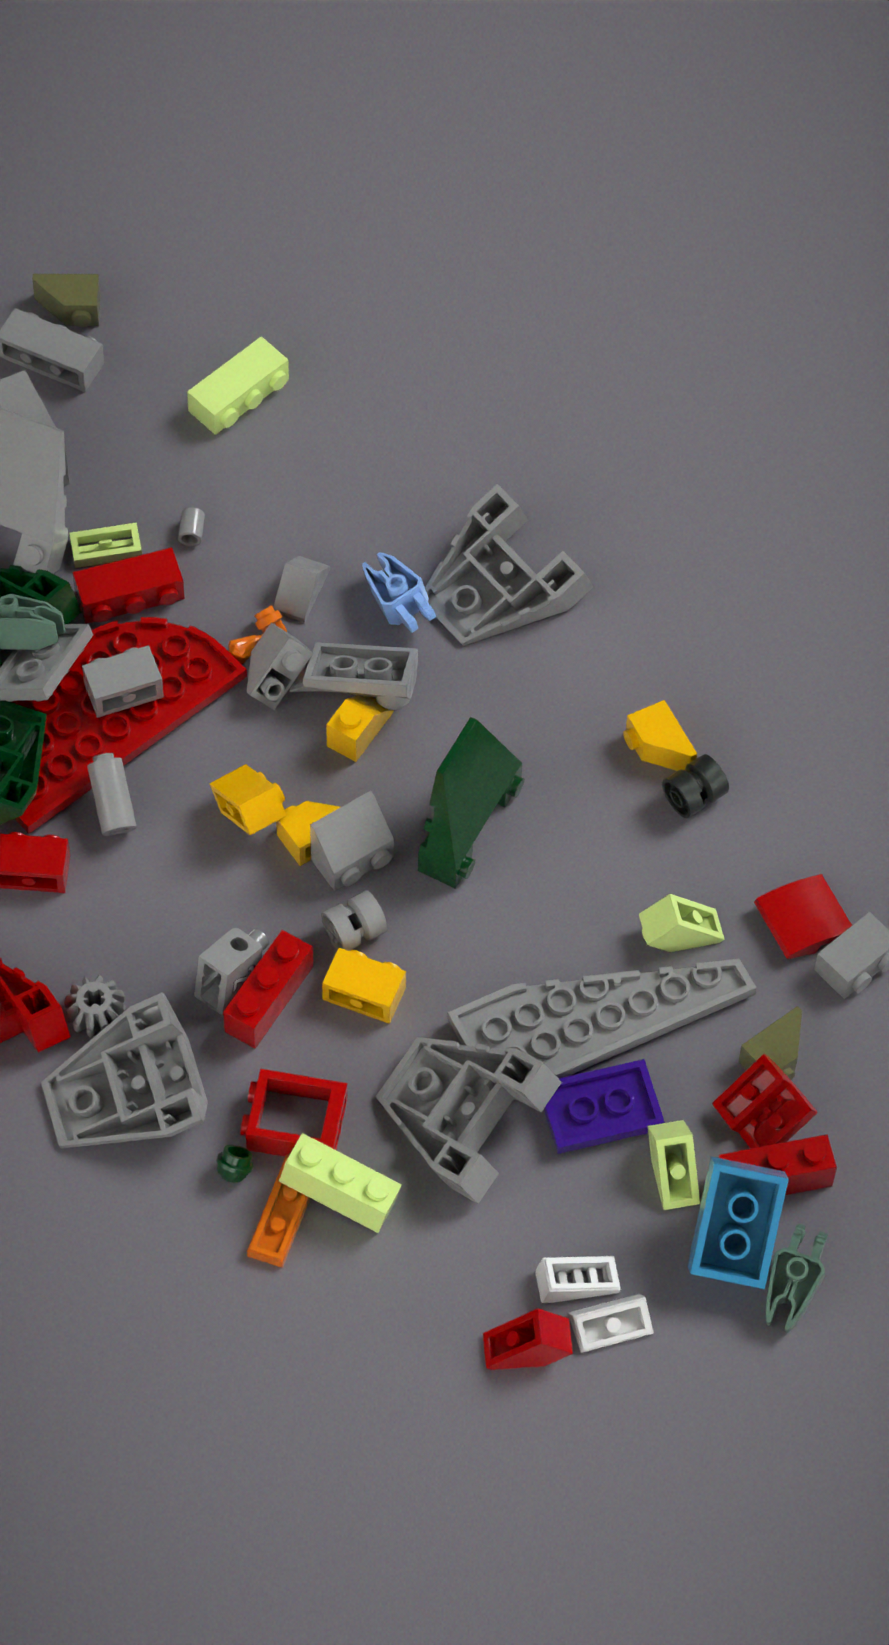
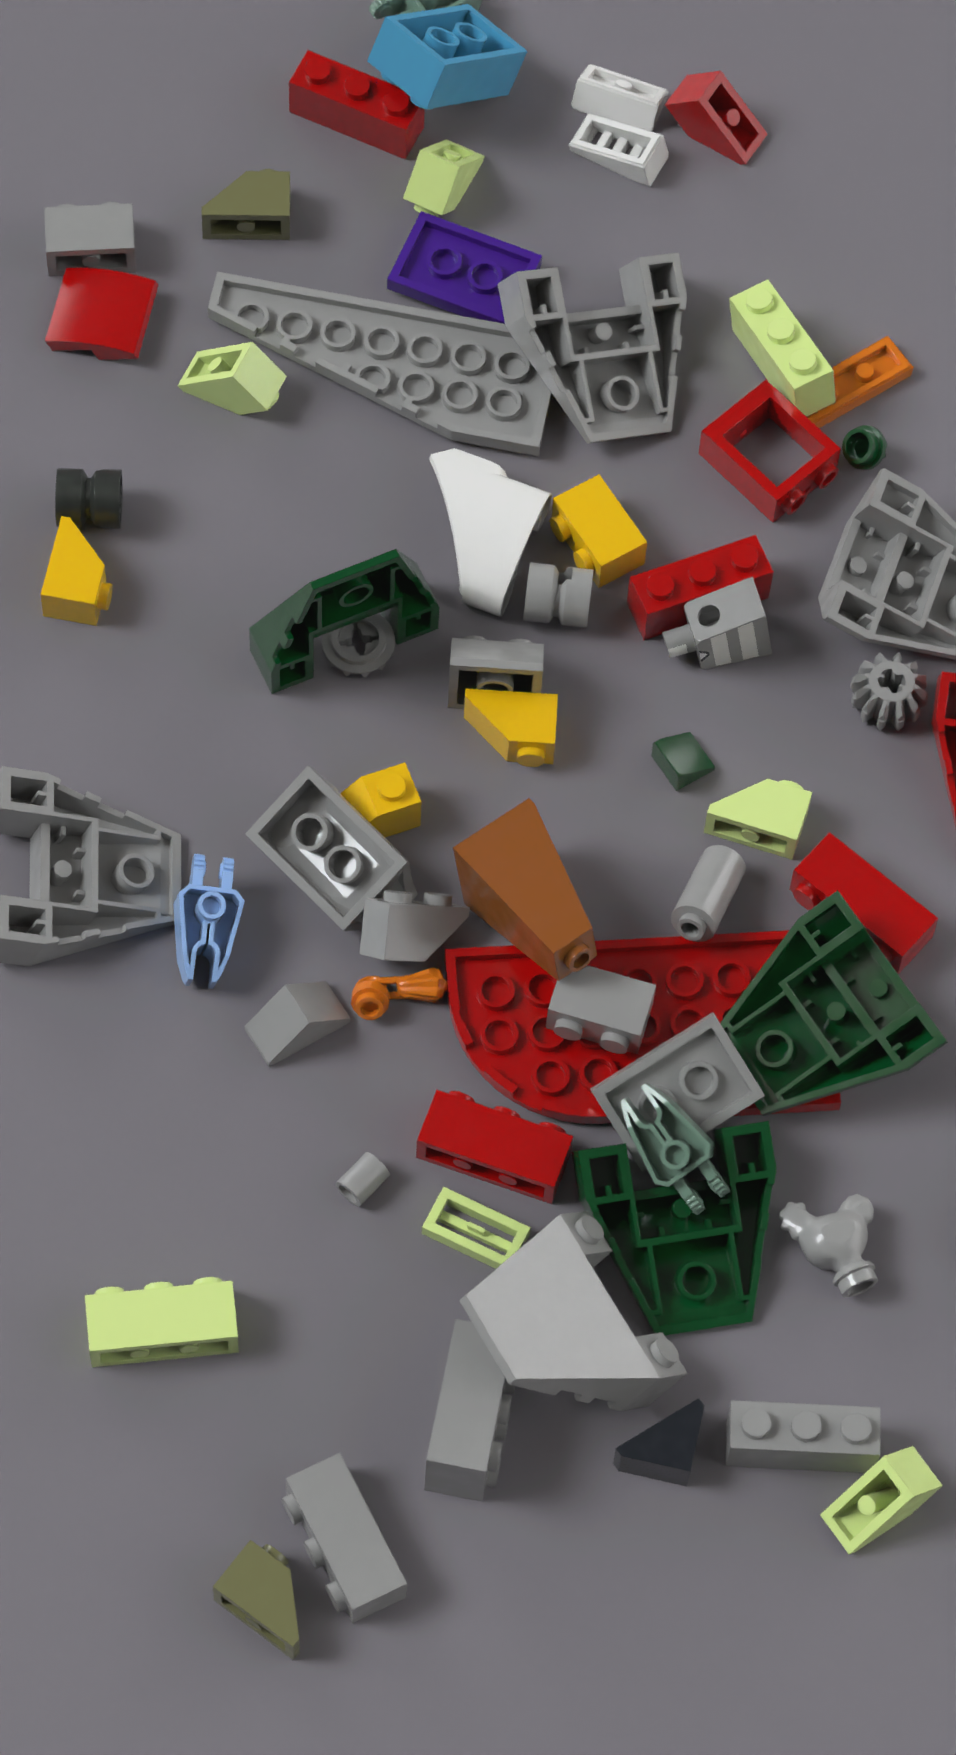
camera: 145 degrees left, 5 degrees up
(115, 873) = (762, 816): none -> yellowish green slope
(196, 881) = (681, 759): none -> dark green slope
(210, 700) = (523, 891): none -> dark orange slope
(249, 799) = (567, 782): yellow brick -> none
(439, 936) = (488, 523): none -> white panel
(764, 1105) = (317, 154): red slope -> none

